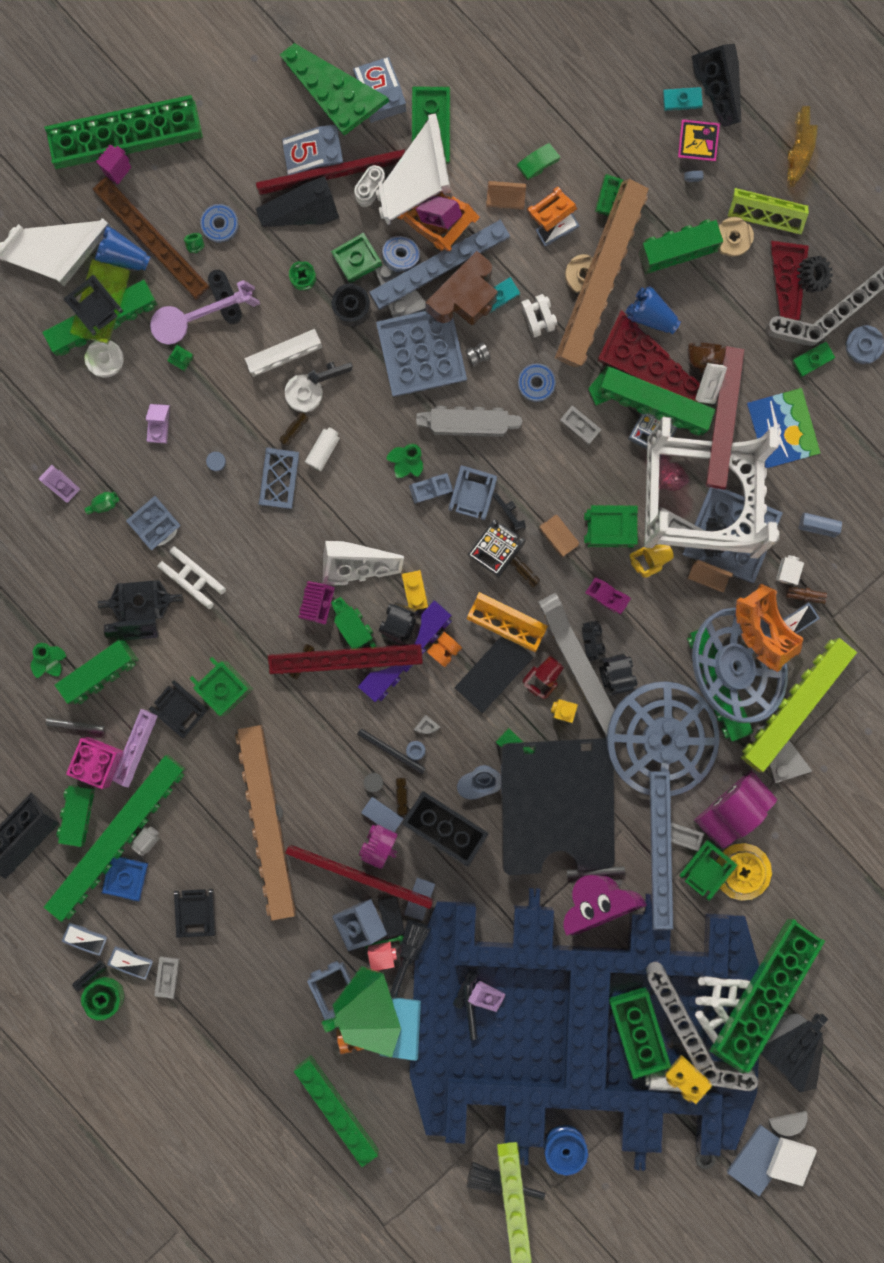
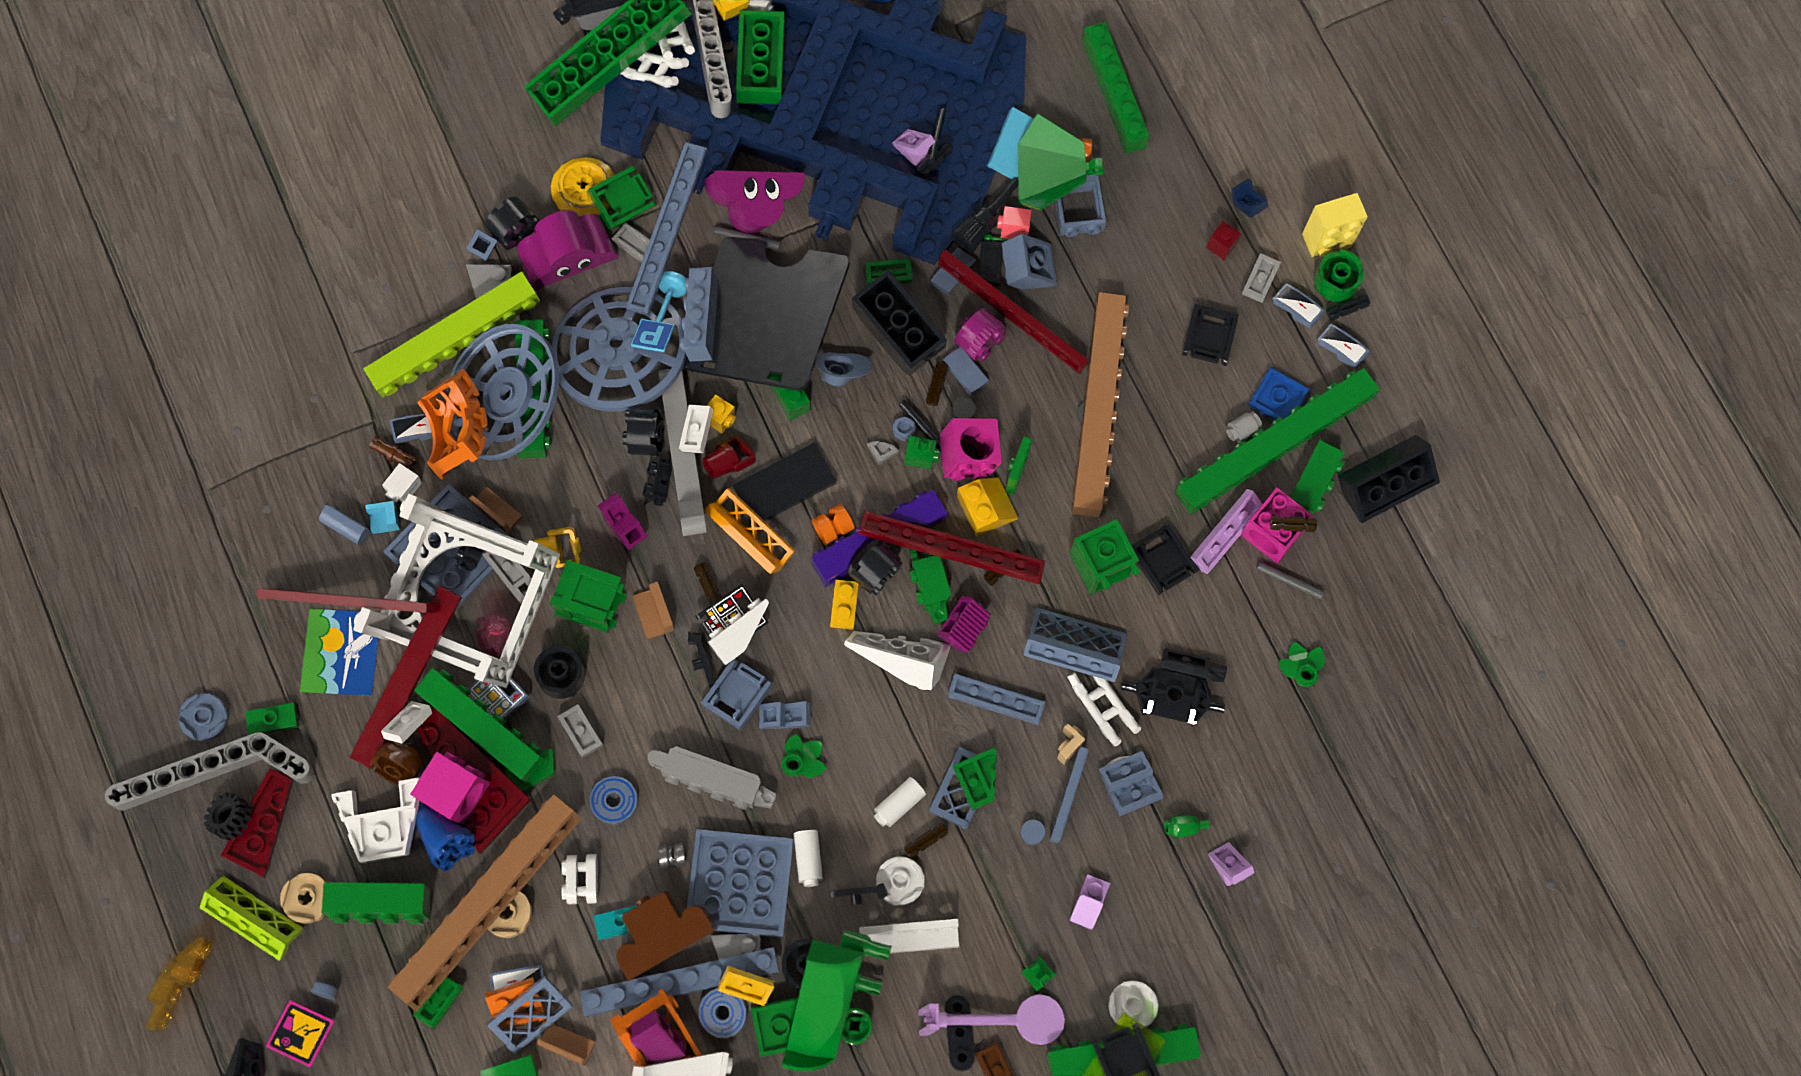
camera: 170 degrees left, 15 degrees down
(79, 759) = (1293, 524): none -> dark brown axle
(96, 672) = (1247, 625): green brick -> none
(115, 1038) = (1334, 225): none -> light yellow brick
(196, 497) = (1069, 795): none -> sand blue tile
(196, 1044) = (1248, 199): none -> dark blue bracket
(206, 999) = (1223, 240): none -> dark red brick
(207, 533) = (1069, 748): none -> tan bracket
(225, 602) = (1072, 655): none -> sand blue fence
(268, 485) = (978, 778): none -> green wing
(274, 555) = (996, 699): none -> sand blue tile
(314, 744) = (1017, 465): none -> green plate
(323, 279) = (826, 996): none -> green piece
(329, 707) = (986, 505): none -> yellow slope
(338, 743) = (982, 435): none -> dark pink brick
(376, 386) = (808, 857): none -> white brick
(389, 273) = (745, 985): none -> yellow plate
(394, 732) = (921, 452): none -> green brick
(474, 887) = (889, 264): none -> green tile
(488, 531) = (736, 637): none -> white slope
(542, 215) = (528, 995): none -> sand blue window
(576, 687) = (696, 429): none -> white plate
(608, 786) = (700, 314): none -> sand blue brick
(618, 453) = (552, 661): none -> black brick
(638, 754) = (656, 334): none -> medium azure piece
(658, 343) = (450, 787): none -> dark pink brick
(697, 300) = (383, 832): none -> white wing
(787, 815) = (511, 222): none -> black brick
(791, 458) = (347, 600): none -> dark red tile
(792, 540) = (383, 517): none -> medium azure panel
(804, 789) = (482, 245): none -> sand blue brick

